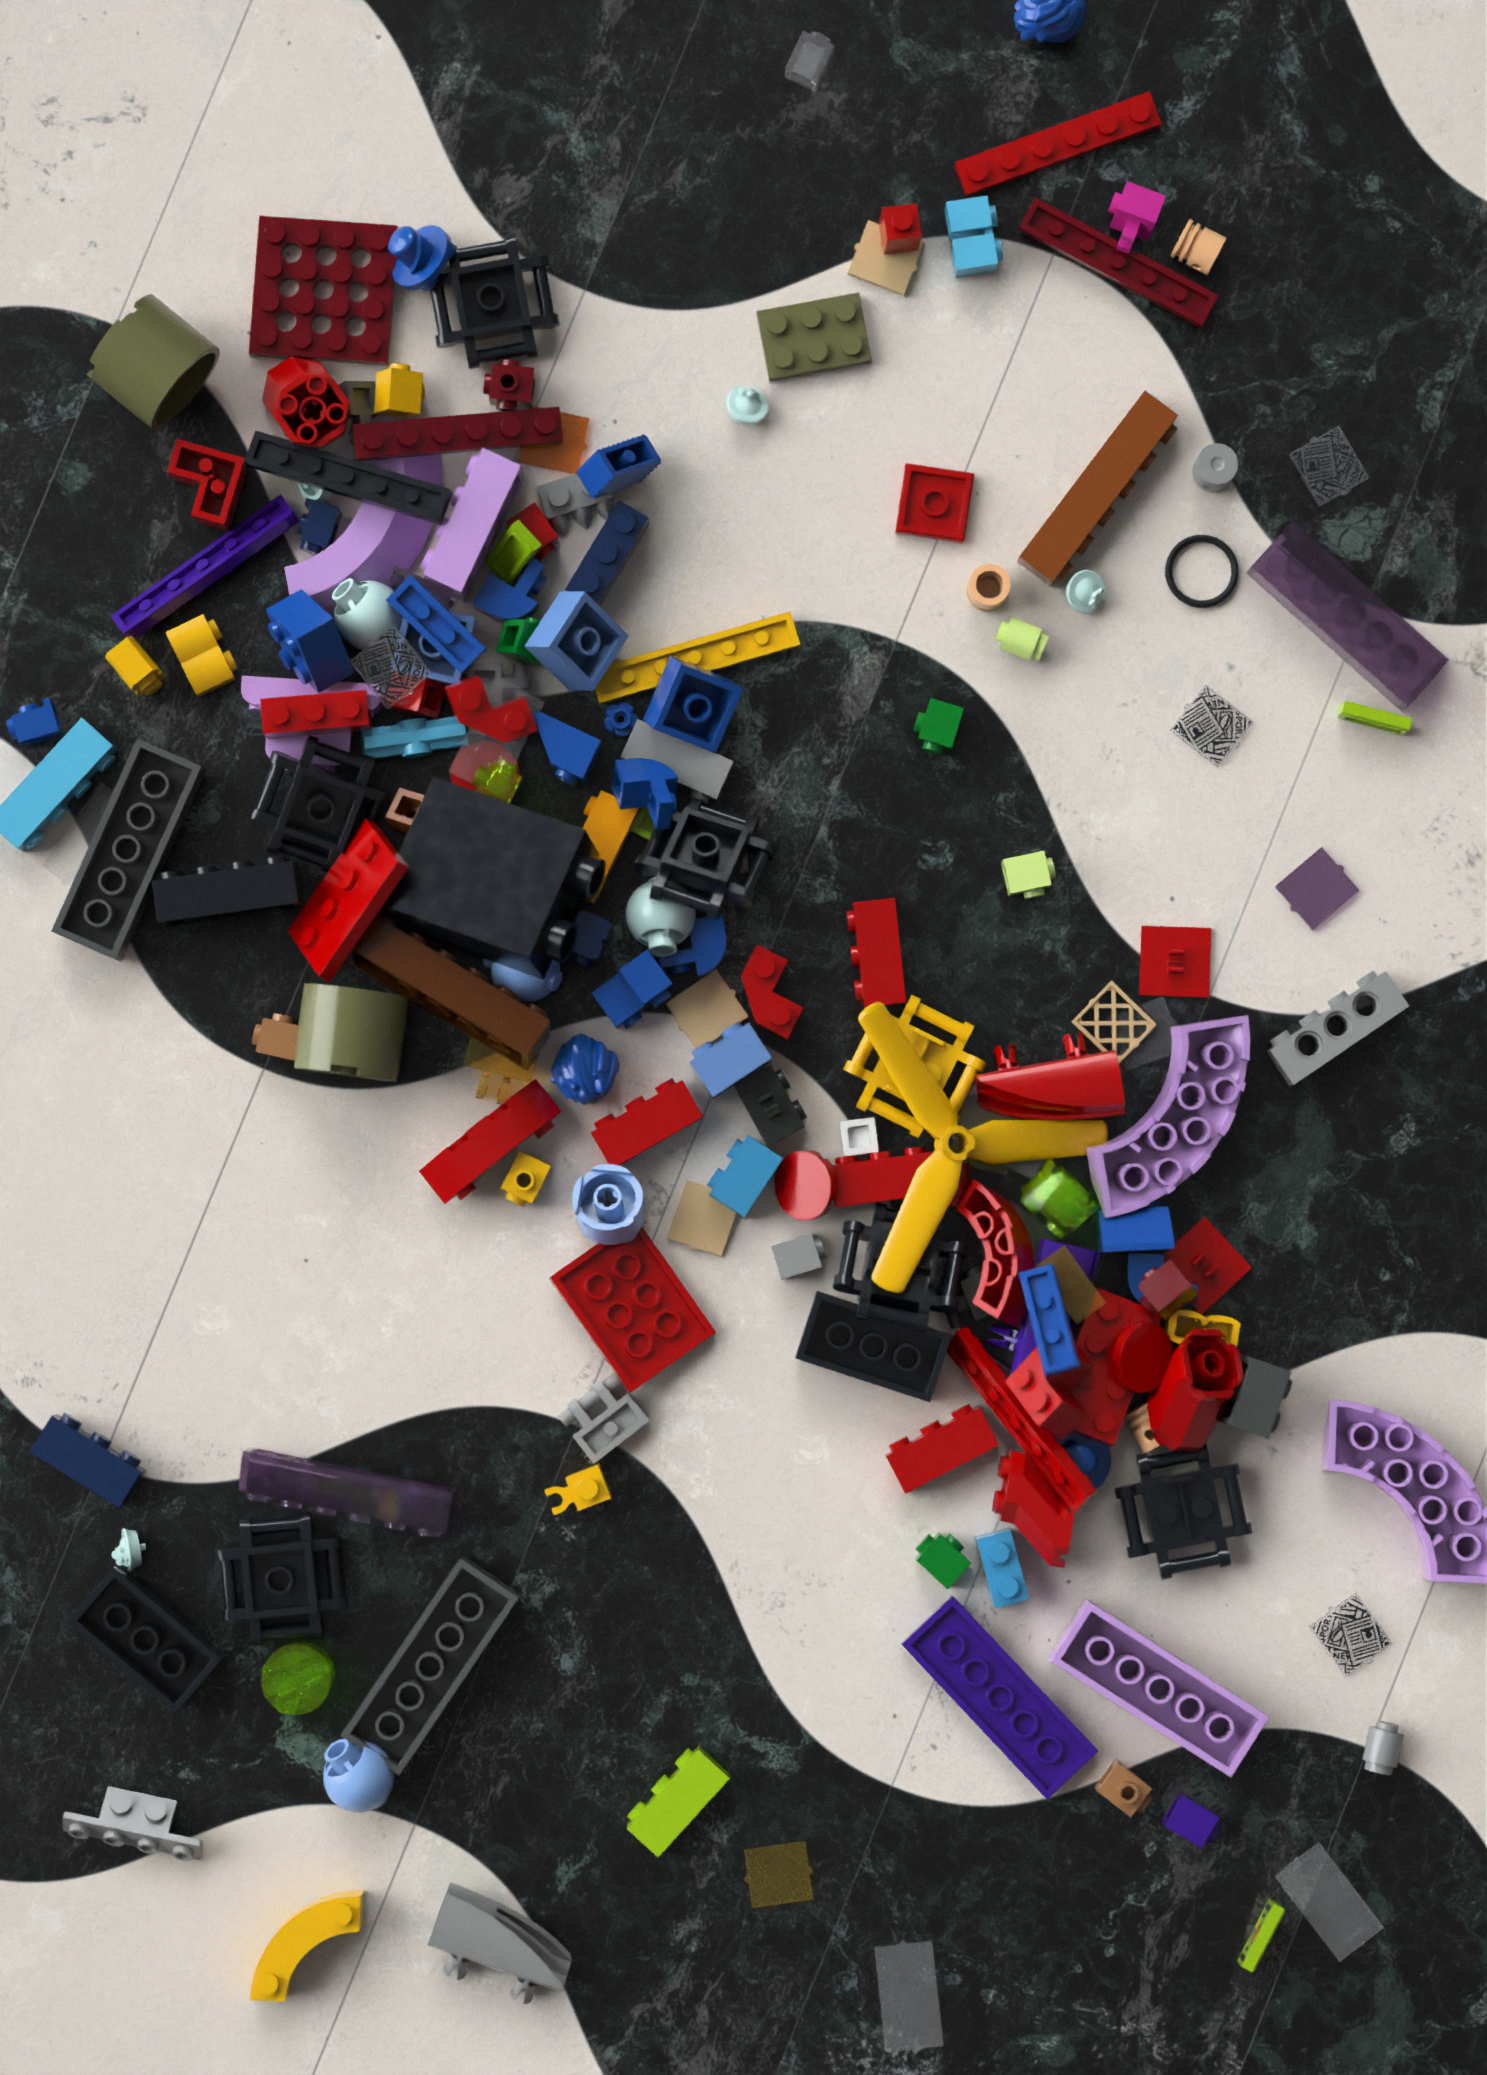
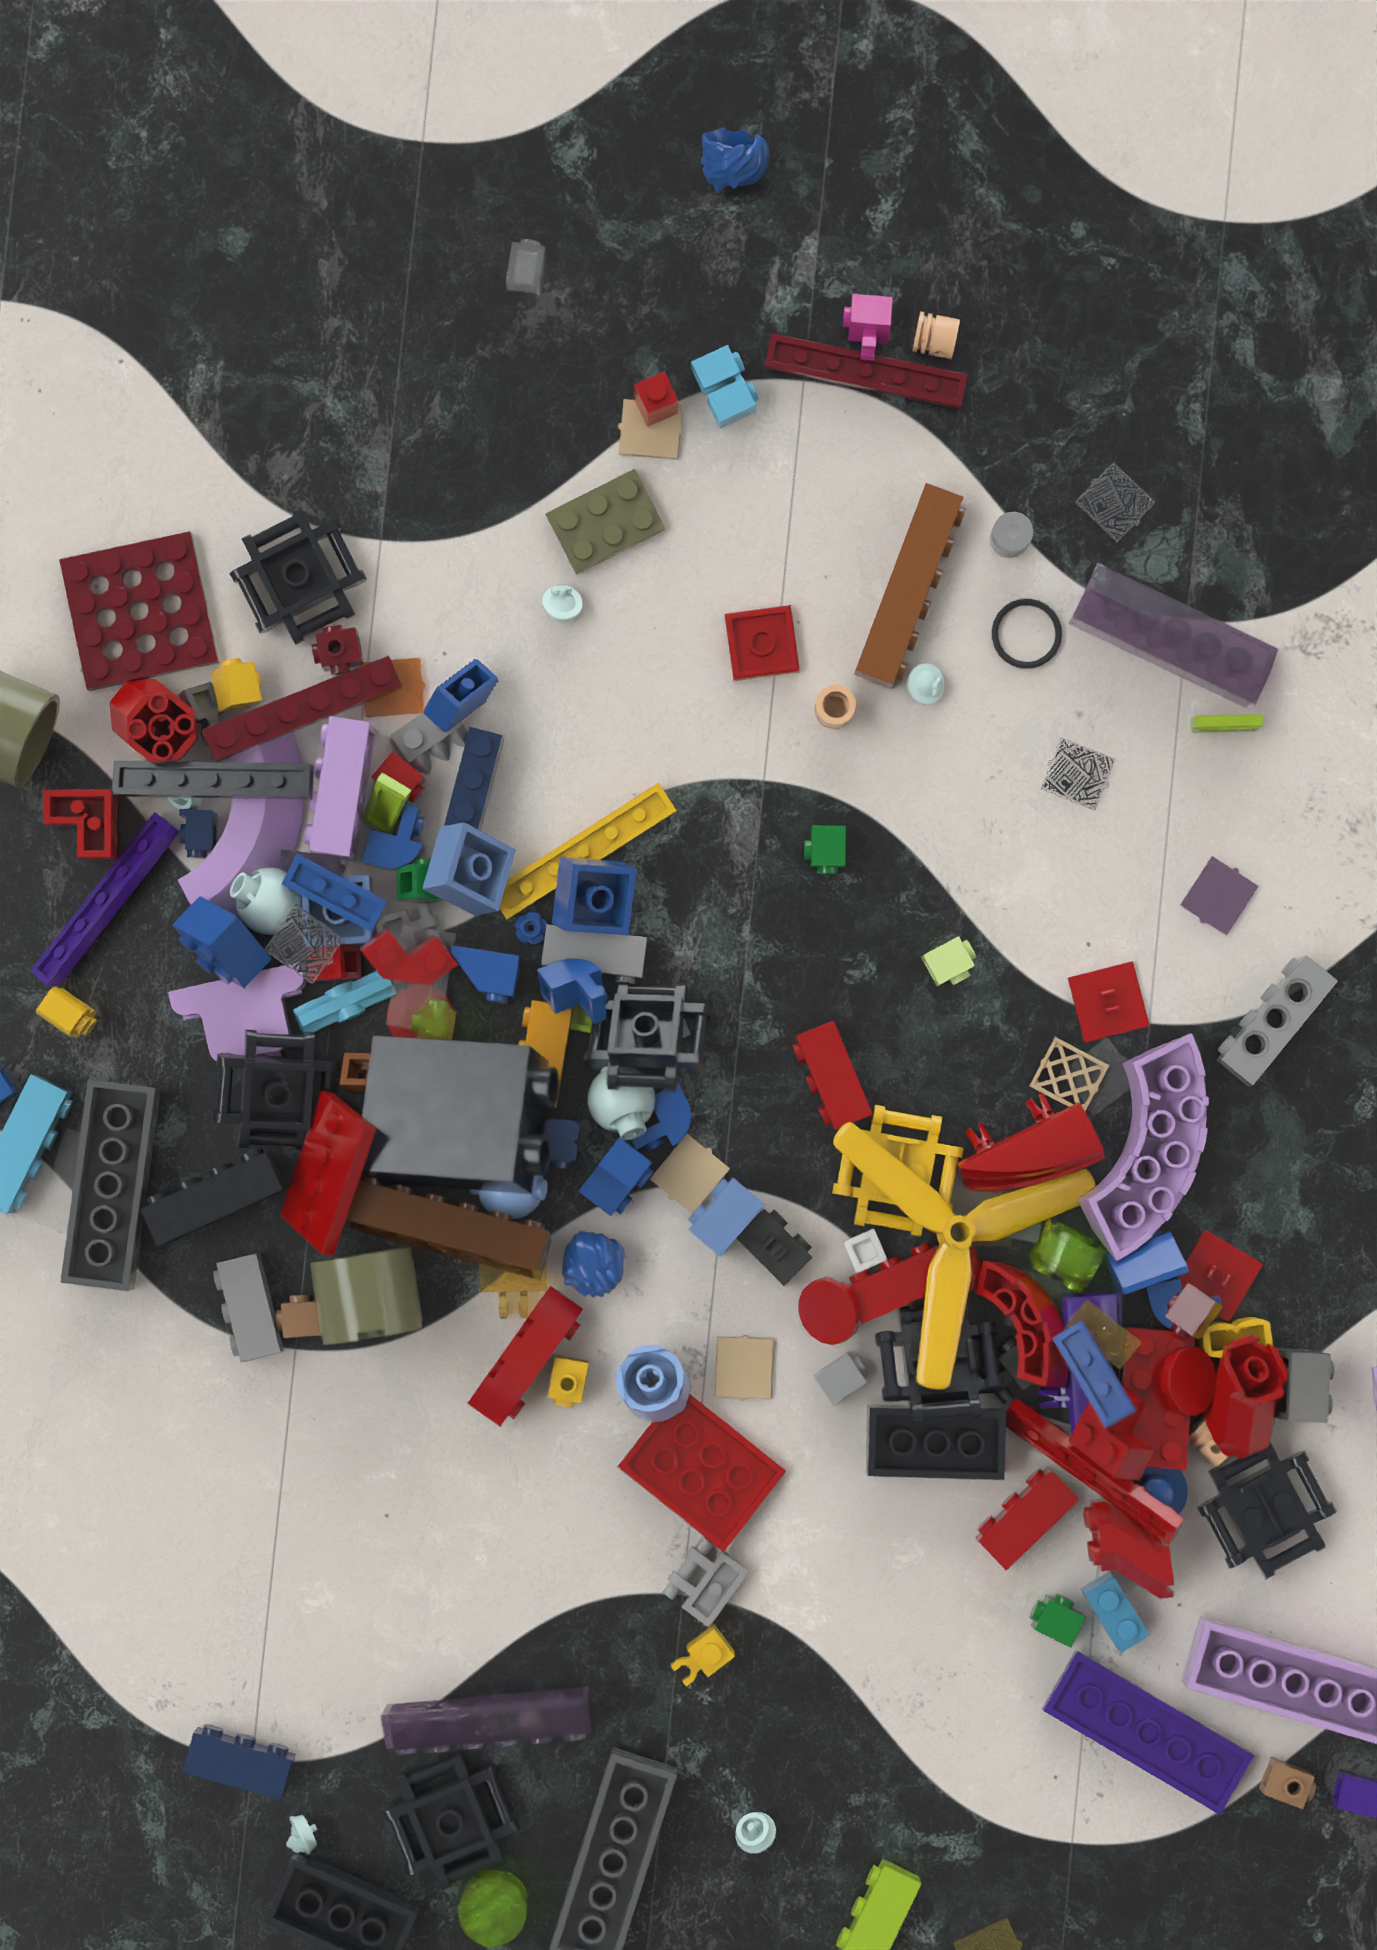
camera: 15 degrees left, 0 degrees up
(201, 655) = (125, 983): yellow brick -> none
(229, 1012) = (248, 1307): none -> light grey brick
(316, 714) = (247, 1008): red brick -> none
(420, 256) = (219, 553): blue plate -> none
(579, 1681) = (755, 1832): none -> light aqua hat
(646, 1122) = (664, 1296): red brick -> none
(744, 1176) = (770, 1318): dark azure brick -> none
(768, 1008) = (731, 1133): red brick -> none
(1021, 639) = (879, 745): yellowish green brick -> none
(1057, 144) = (778, 278): red plate -> none

